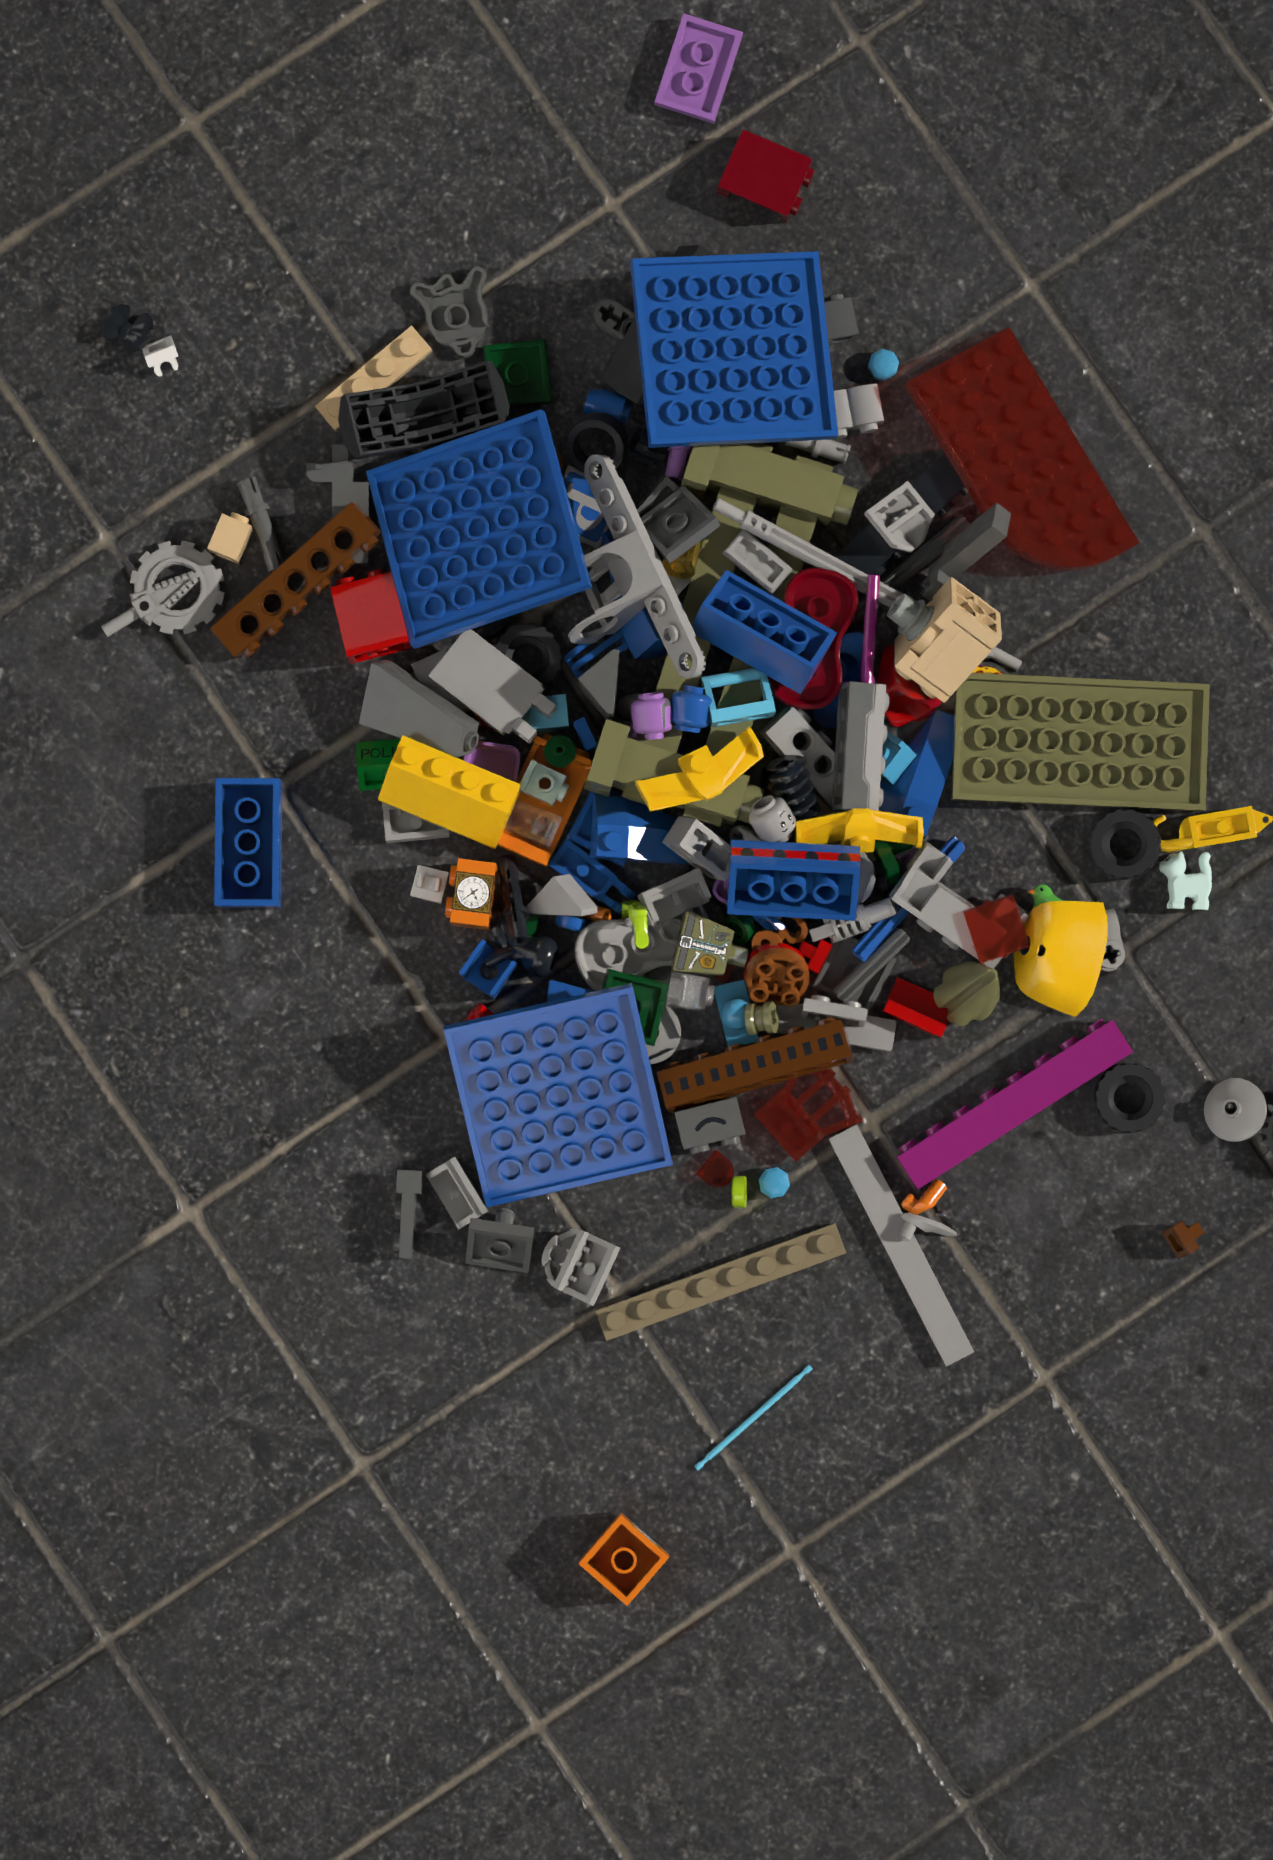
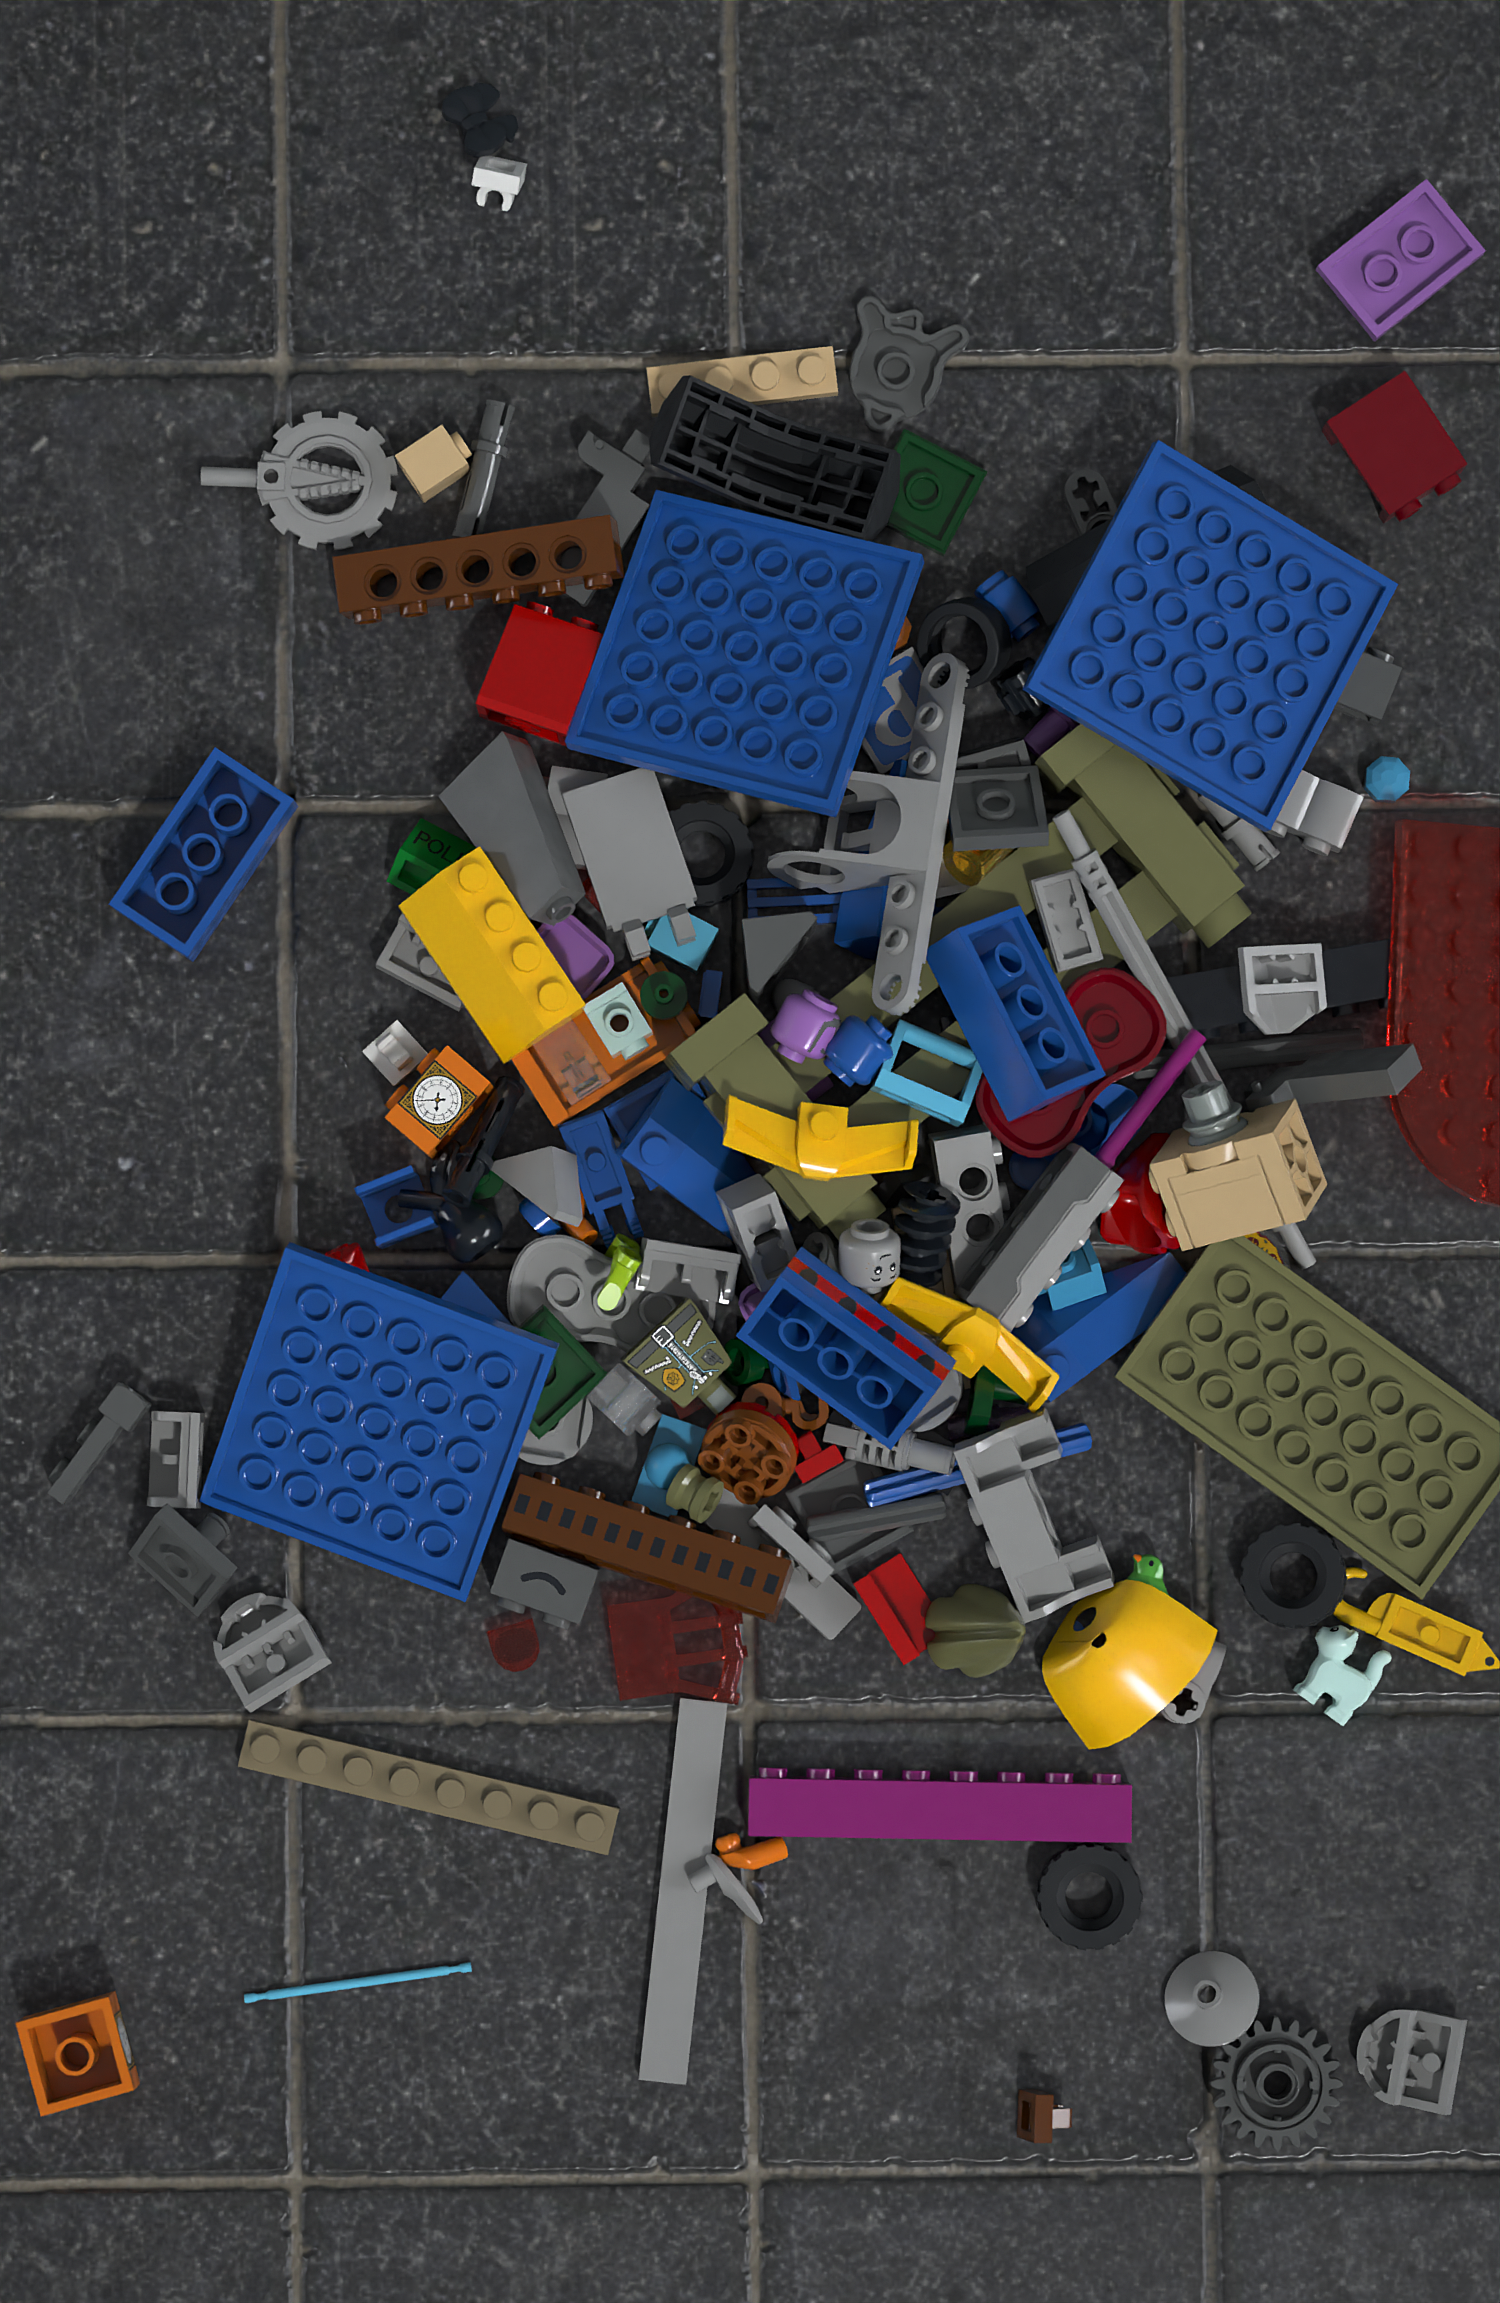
camera: 30 degrees right, 0 degrees up
(739, 1191) = (525, 1690): lime tile -> none
(774, 1182) = (576, 1707): dark azure tile -> none
(996, 928) = (1061, 1575): clear red piece -> none

